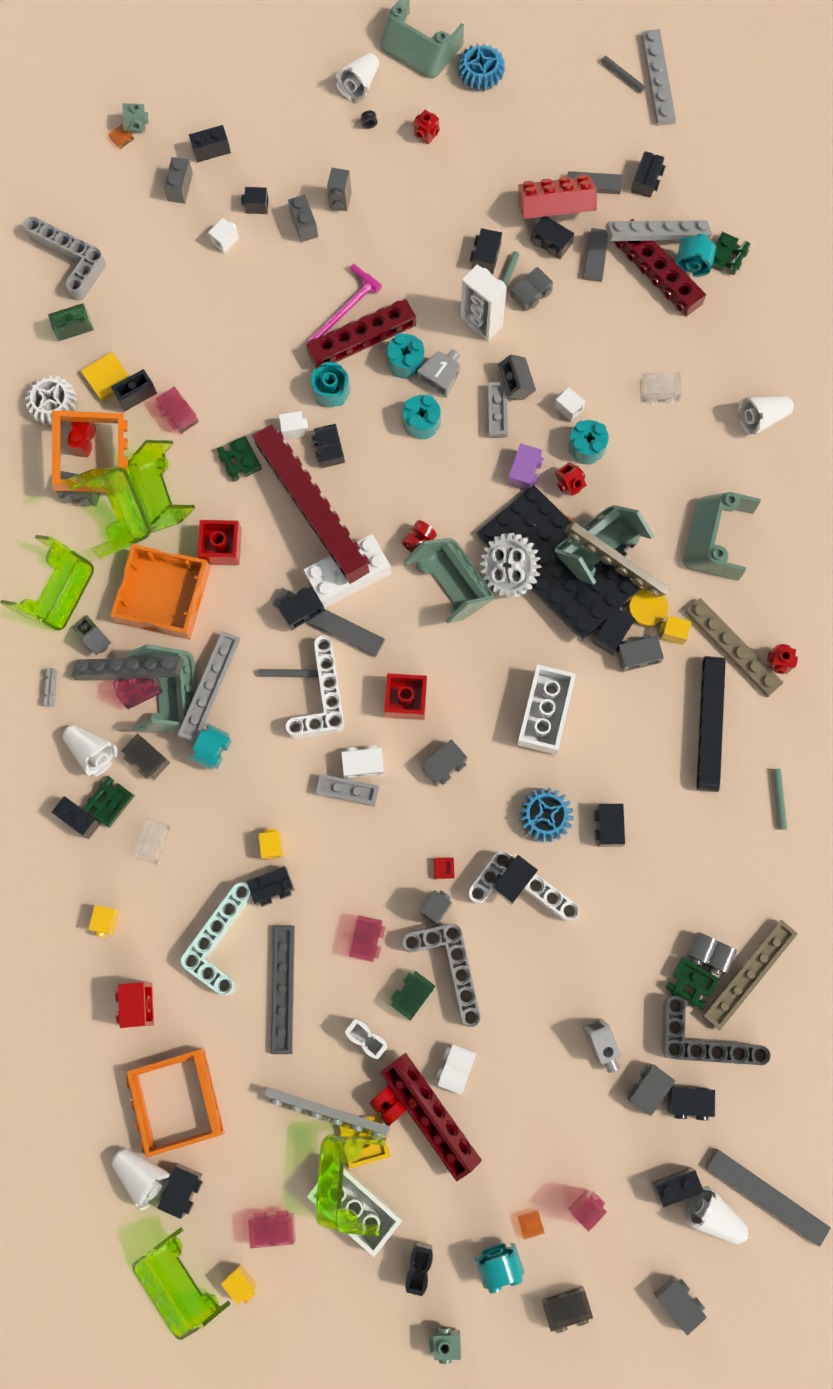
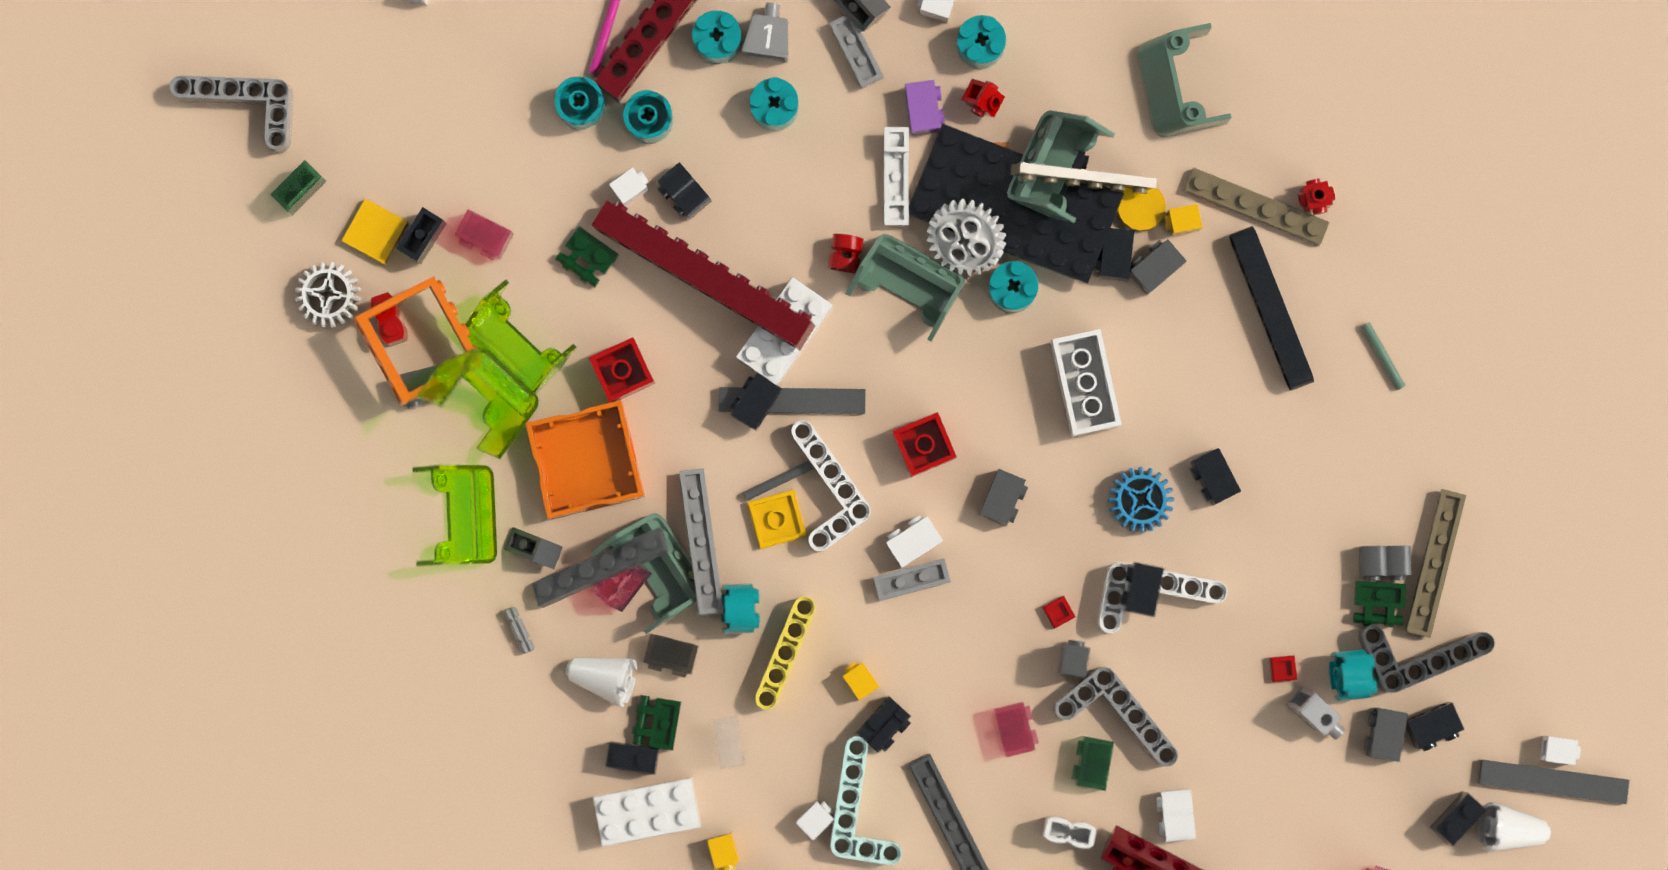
camera: 30 degrees left, 10 degrees up
(64, 862) = (647, 811): none -> white brick
(183, 931) = (816, 819): none -> white brick
(217, 798) = (785, 665): none -> light yellow beam
(273, 699) = (777, 519): none -> yellow tile
(289, 354) = (579, 88): none -> teal brick
(482, 503) = (896, 175): none -> white slope
(534, 609) = (1016, 273): none -> teal brick
(593, 997) = (1283, 668): none -> red tile
(645, 1028) = (1352, 674): none -> teal brick
(784, 1173) = (1560, 750): none -> white brick

